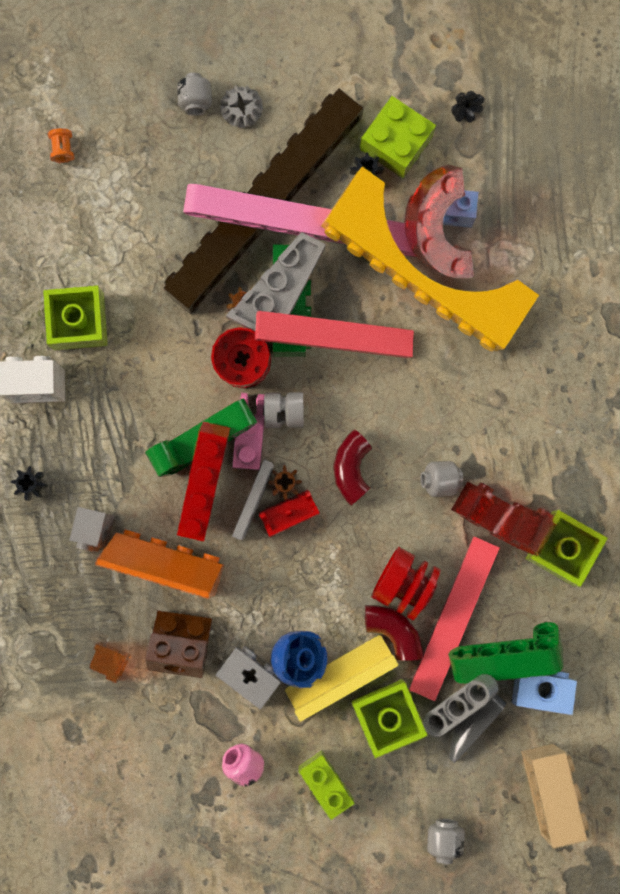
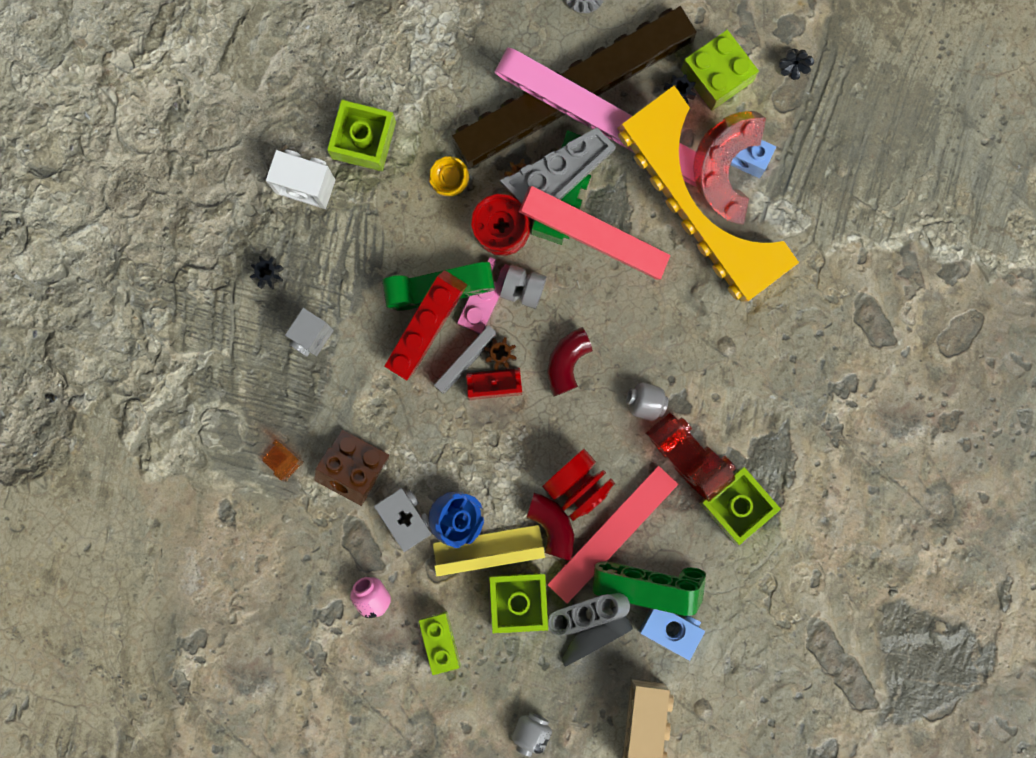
camera: 25 degrees right, 0 degrees up
(162, 564) = (362, 388): orange slope -> none
(174, 328) = (449, 176): none -> yellow hair

